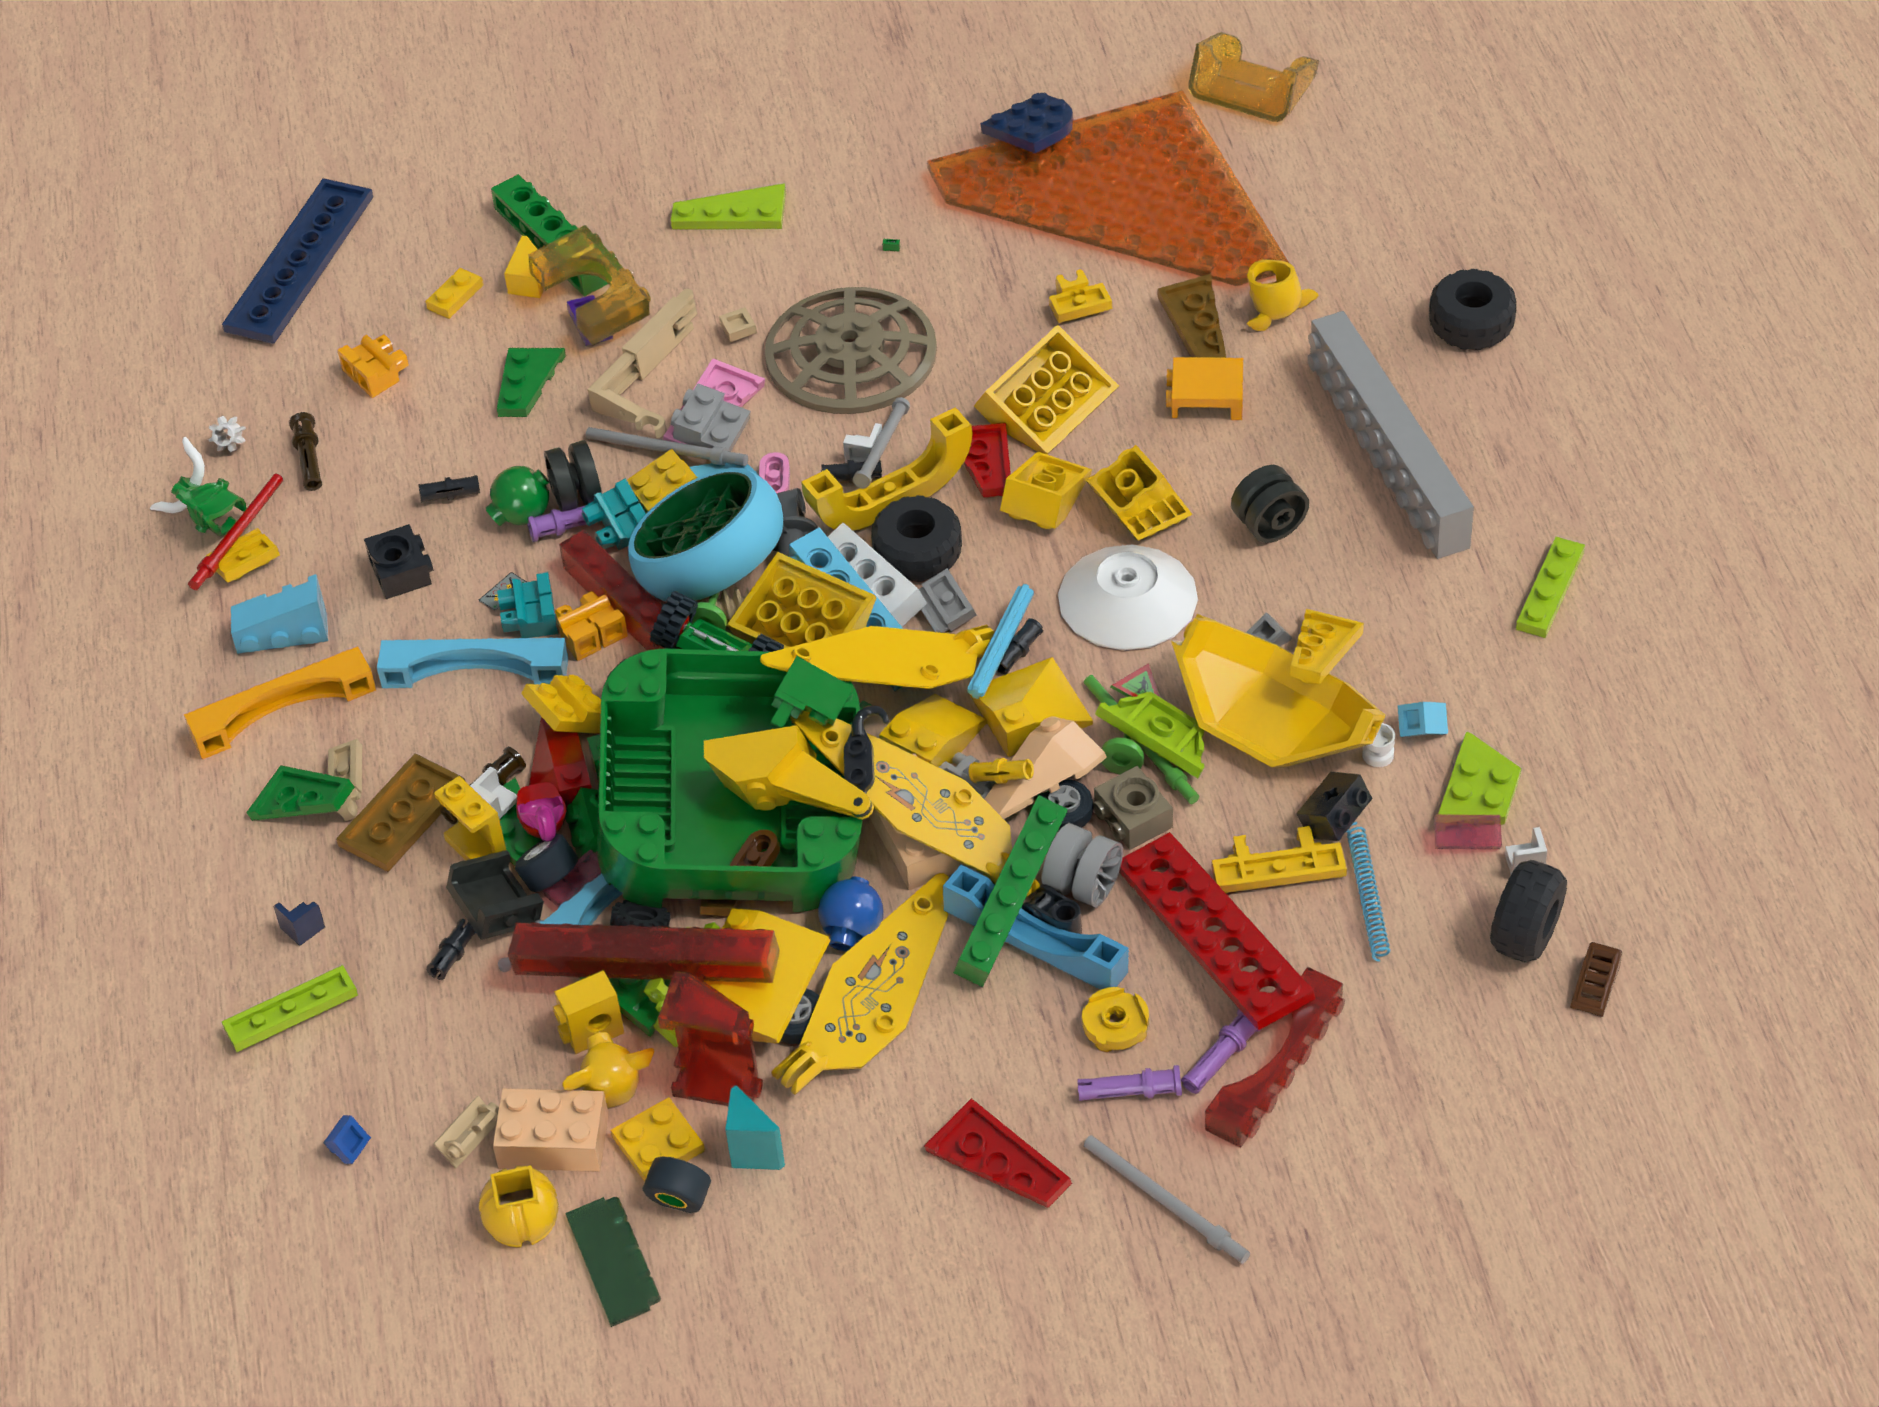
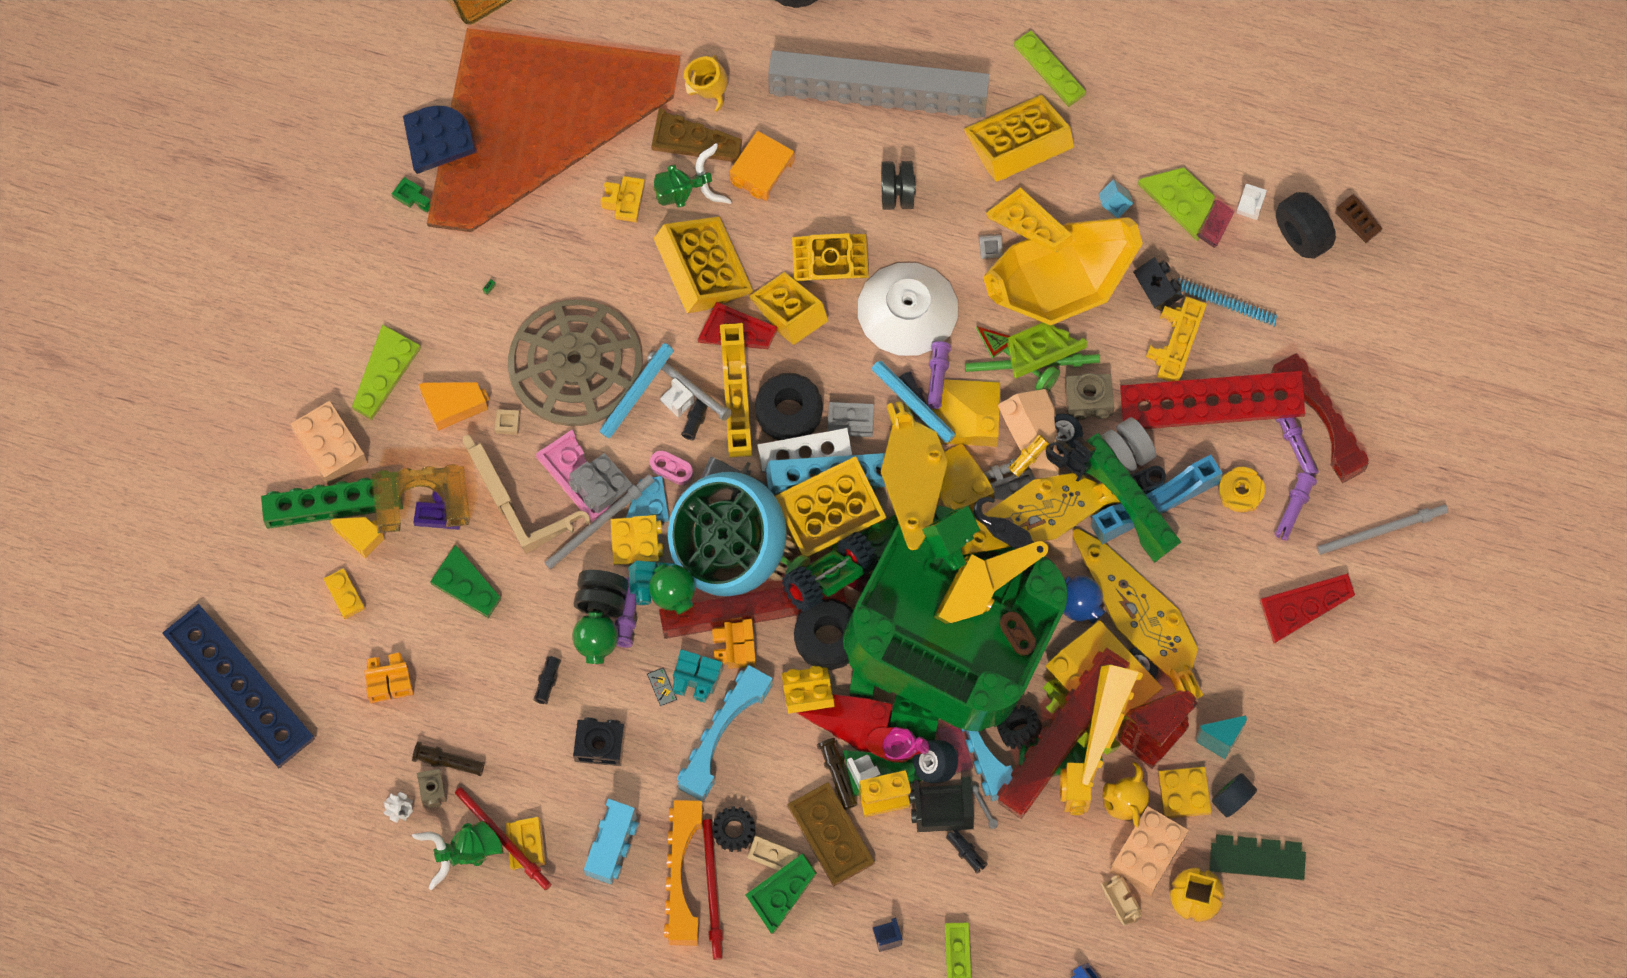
camera: 65 degrees left, 20 degrees up
(221, 764) = (715, 933): none -> red bar
(266, 452) = (431, 778): none -> dark tan brick
(359, 709) = (734, 815): none -> black tyre
(606, 516) = (672, 588): none -> green brick
(617, 200) = (329, 443): none -> light nougat brick
(712, 950) = (1109, 708): none -> yellow wedge
(729, 272) = (453, 401): none -> light orange slope
(847, 405) = (636, 390): none -> medium azure axle
(952, 136) = (410, 193): none -> green plate
(1020, 798) = (1073, 459): none -> black piece
(1069, 649) = (938, 365): none -> medium lavender pin
(1123, 326) = (676, 185): none -> green helmet
(1428, 595) = (1020, 137): none -> yellow slope

